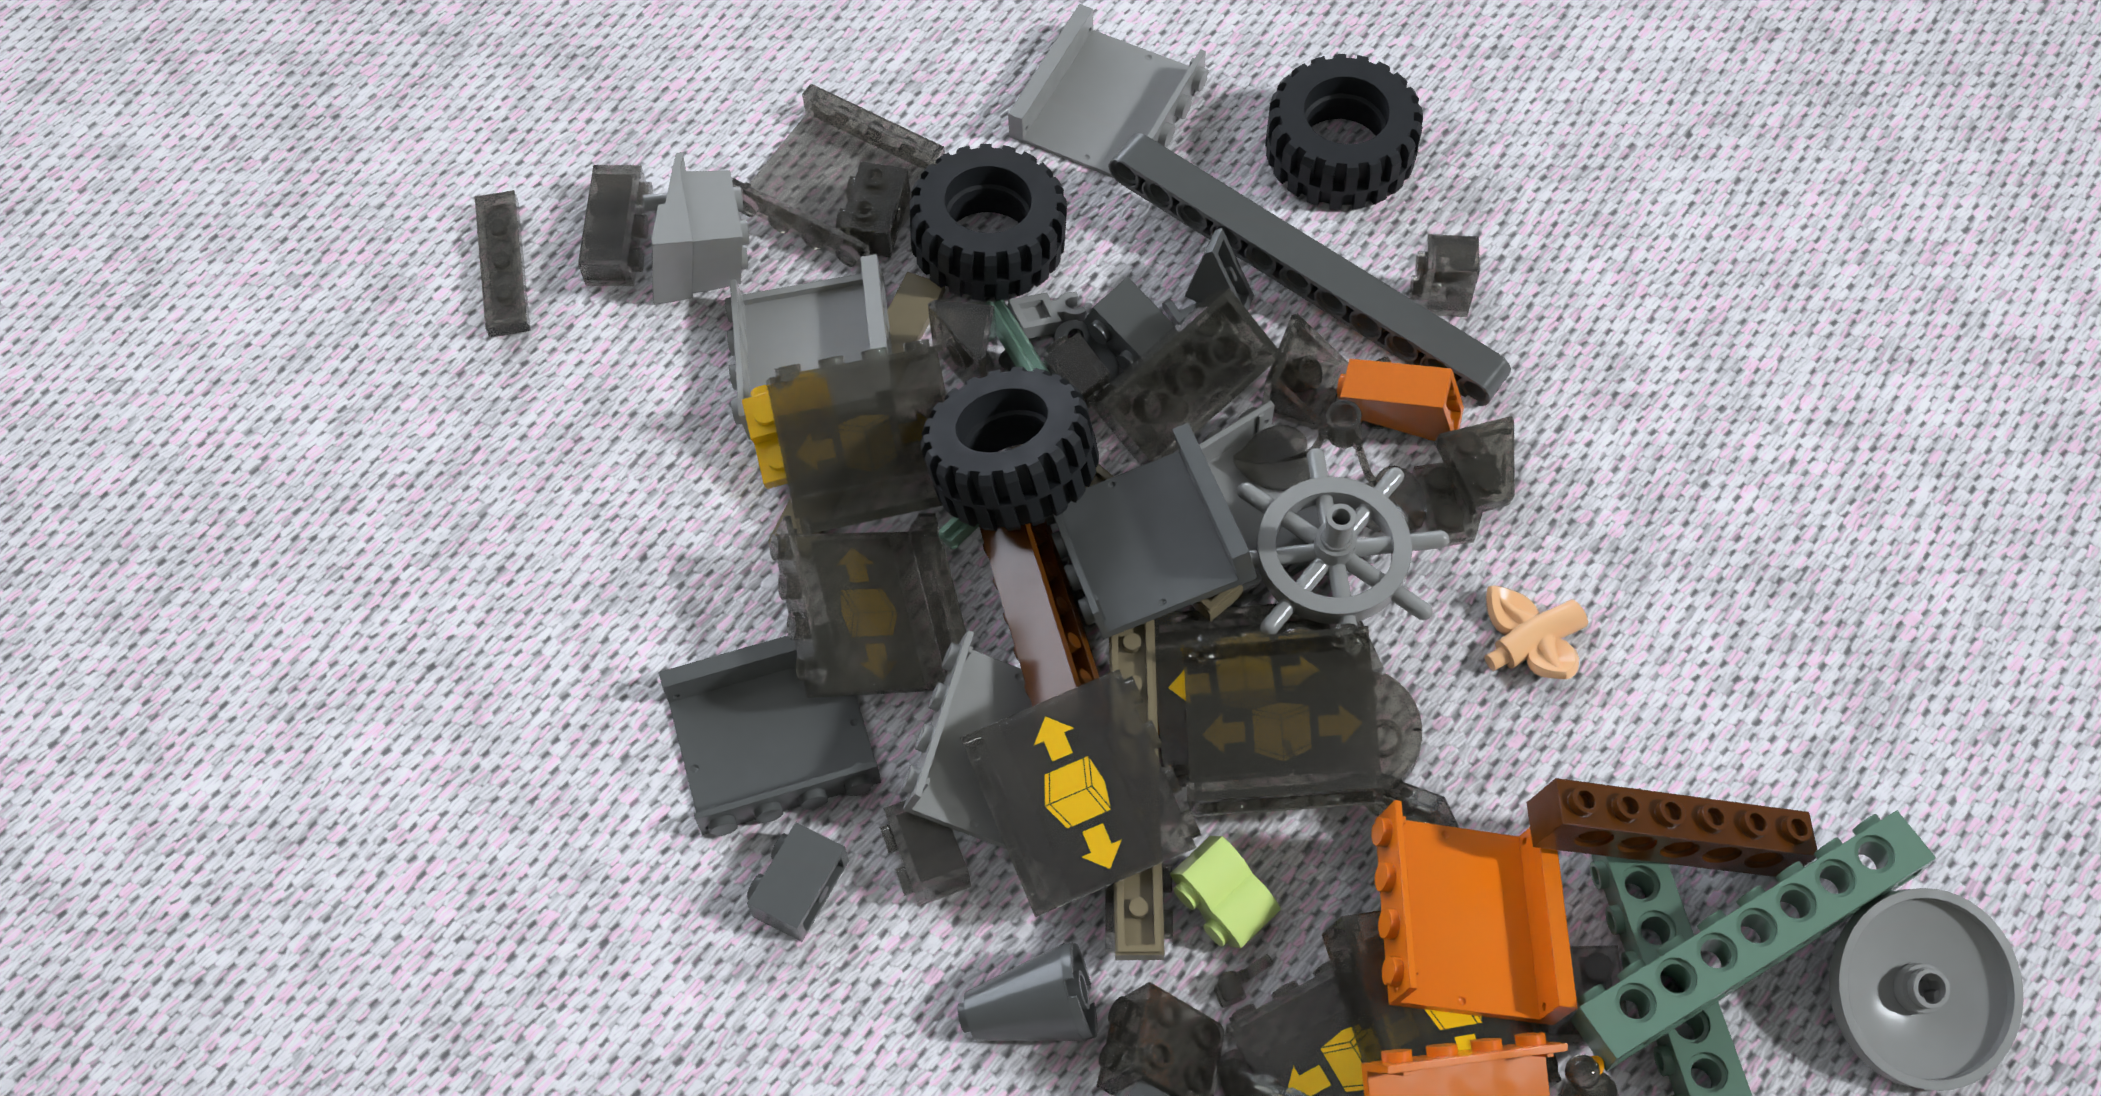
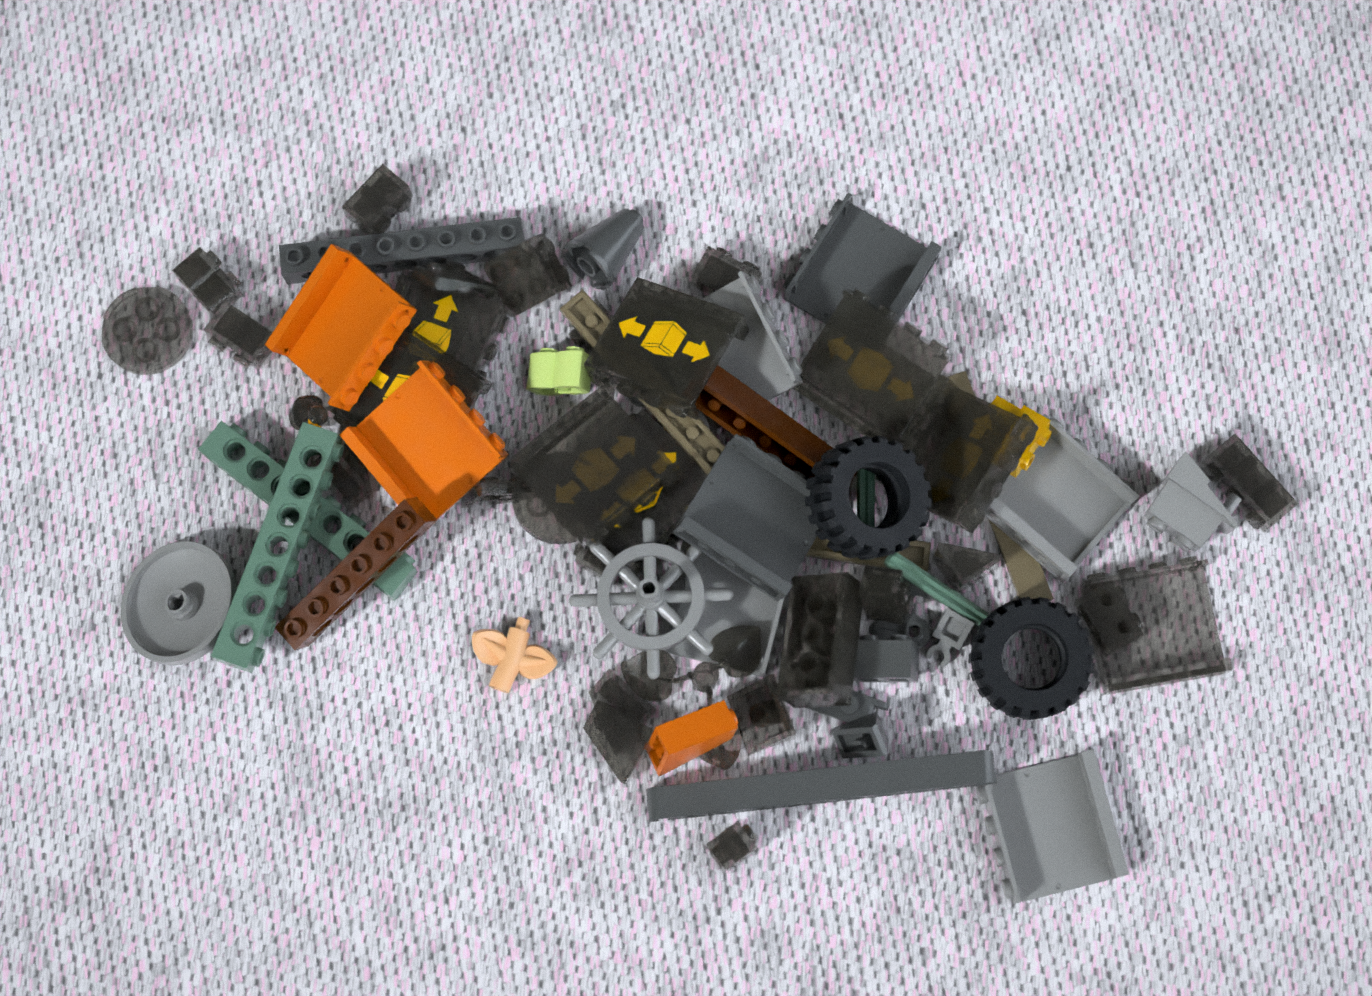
camera: 140 degrees right, 15 degrees up
(502, 264) = (1287, 409): clear smoke plate -> none
(797, 881) = (773, 211): dark grey brick -> none
(1229, 986) = (522, 336): clear smoke hand -> none
(1352, 92) = (924, 903): black tyre -> none

